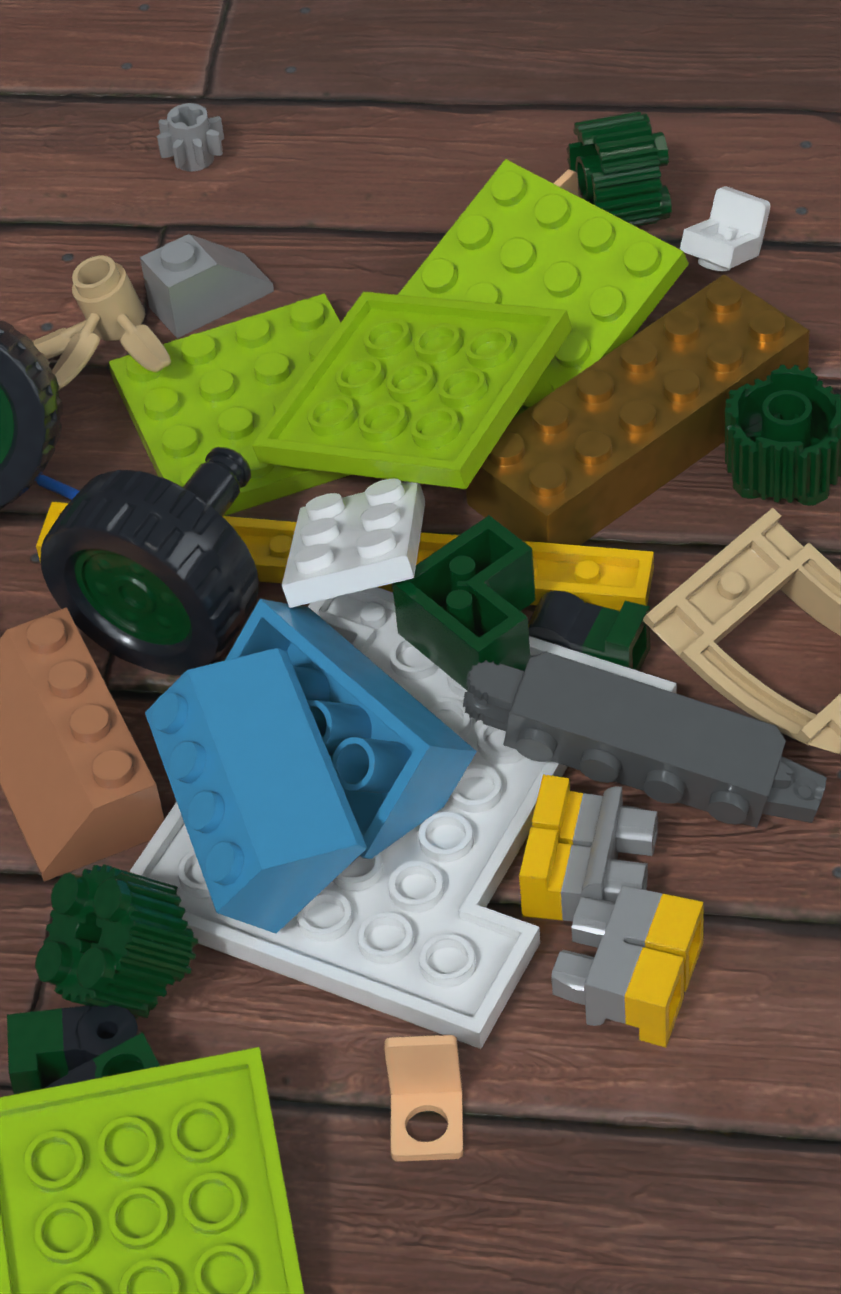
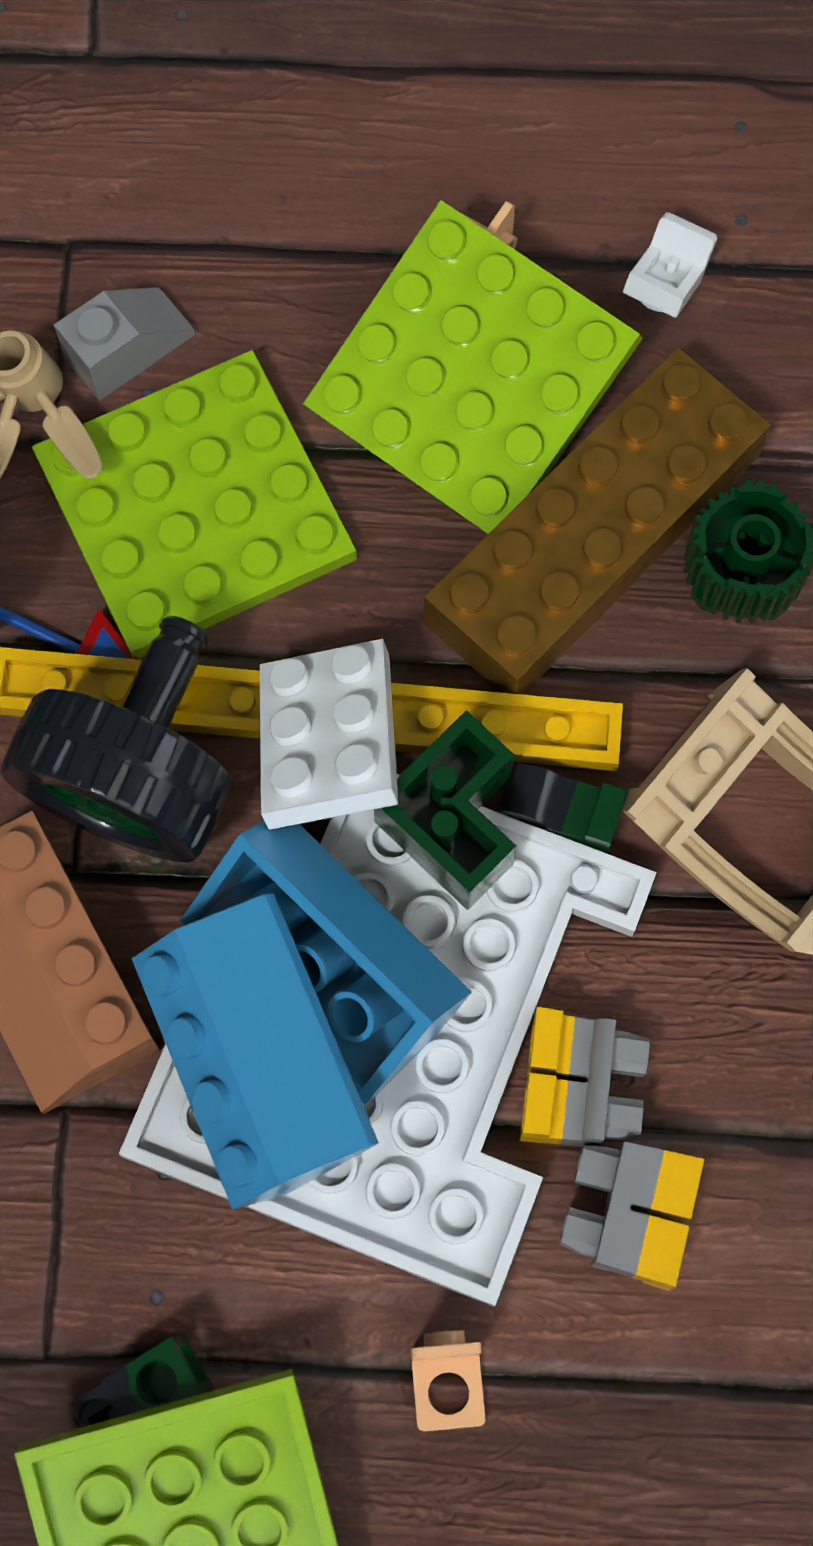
camera: 10 degrees left, 25 degrees up
(55, 1041) = (96, 1329): leg -> none
(115, 940) = (131, 1229): dark green brick -> none
(190, 137) = (85, 127): light grey gear -> none
(413, 388) = (367, 515): lime plate -> none
(620, 167) = (557, 193): dark green brick -> none
(644, 739) = (635, 957): dark grey hinge -> none

